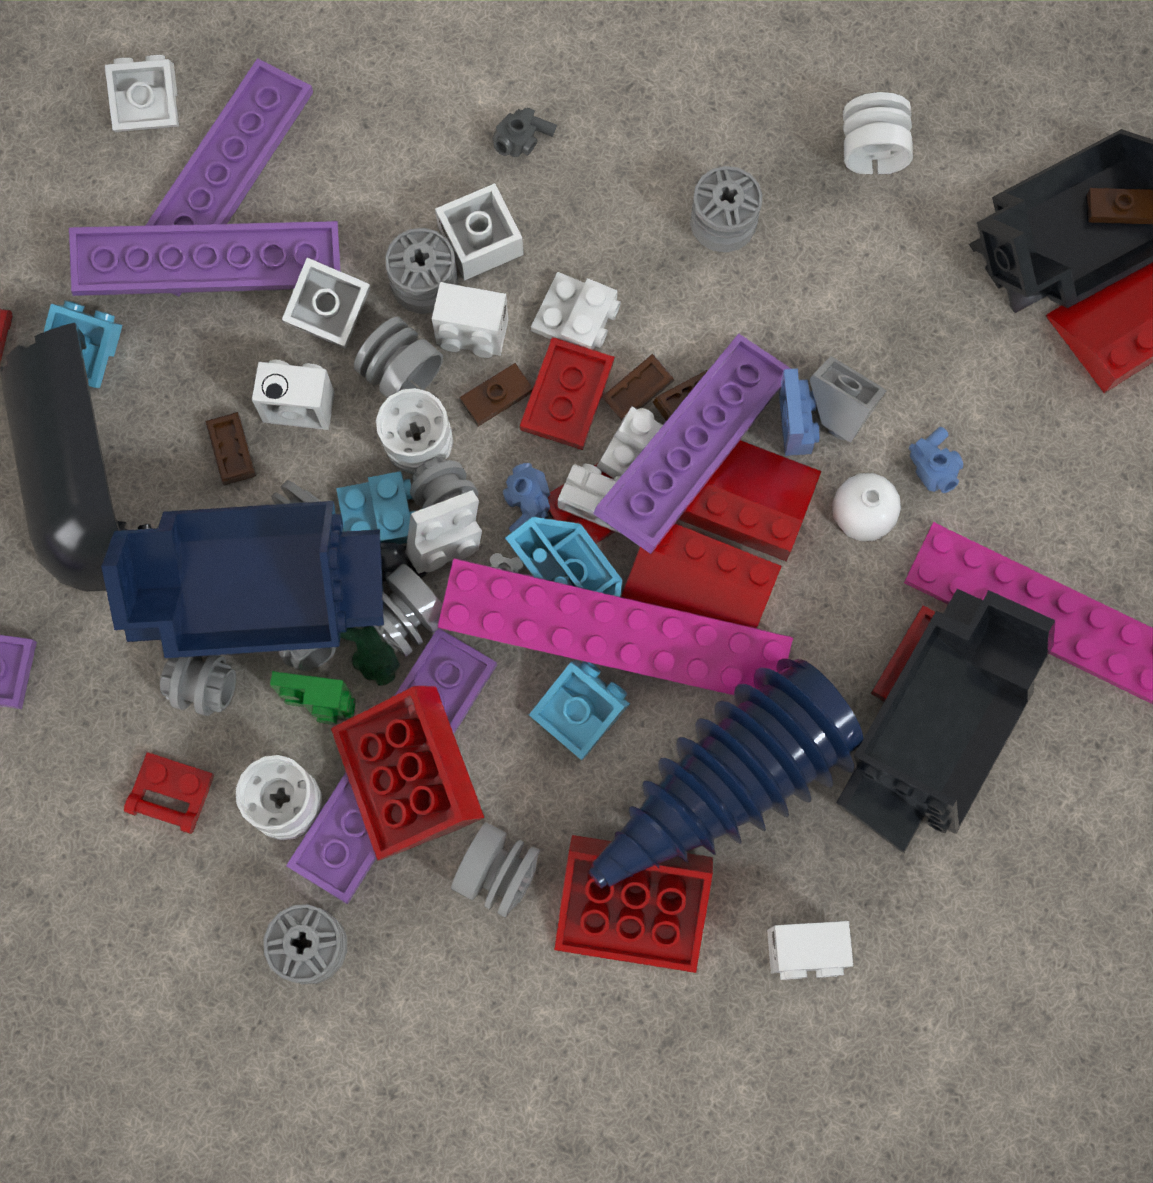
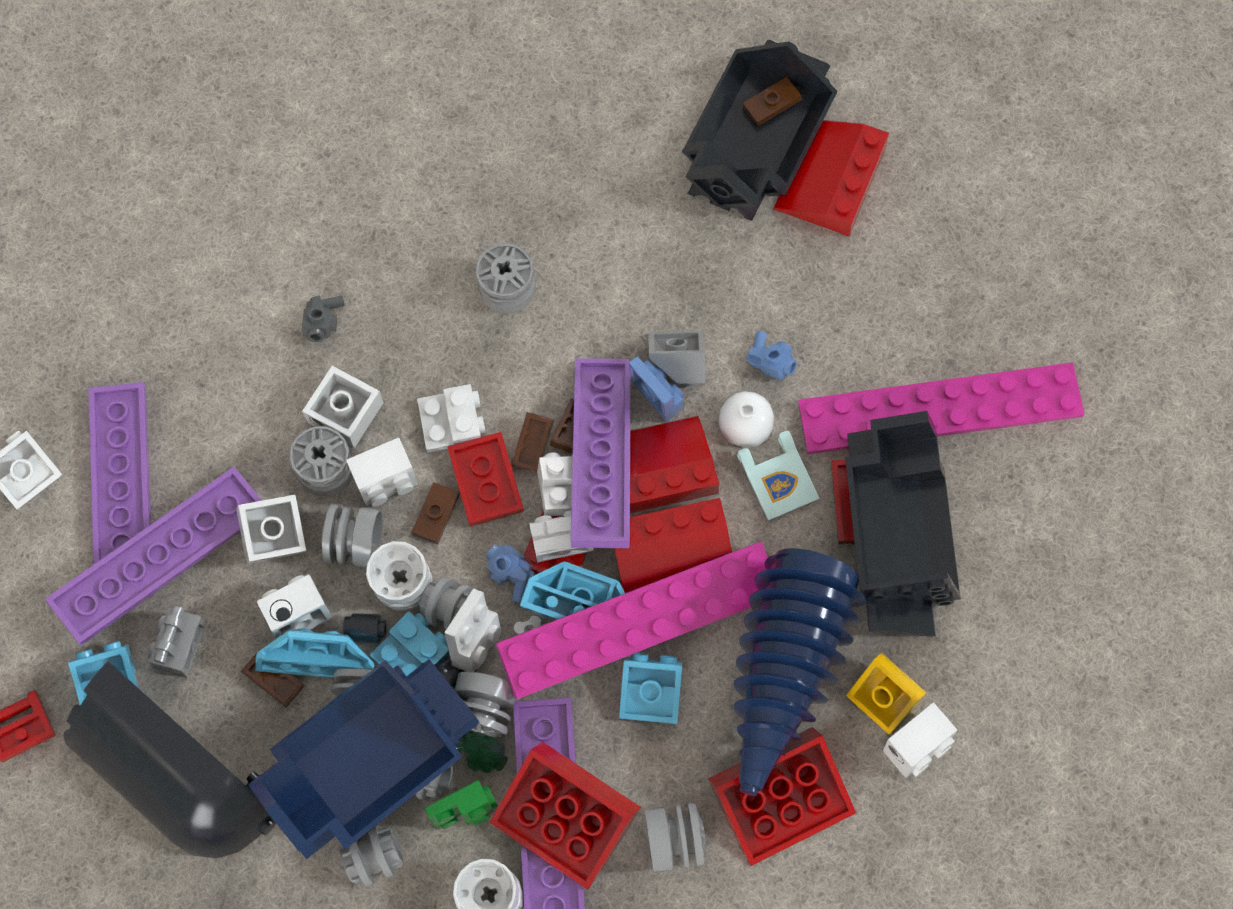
camera: 30 degrees left, 5 degrees down
(167, 353) = (176, 641): none -> light grey brick
(279, 449) = (311, 654): none -> medium azure wedge
(349, 458) = (364, 627): none -> black brick
(810, 876) = (886, 693): none -> yellow brick
(857, 592) = (781, 481): none -> light aqua flag
(877, 129) = (571, 155): white wheel -> none

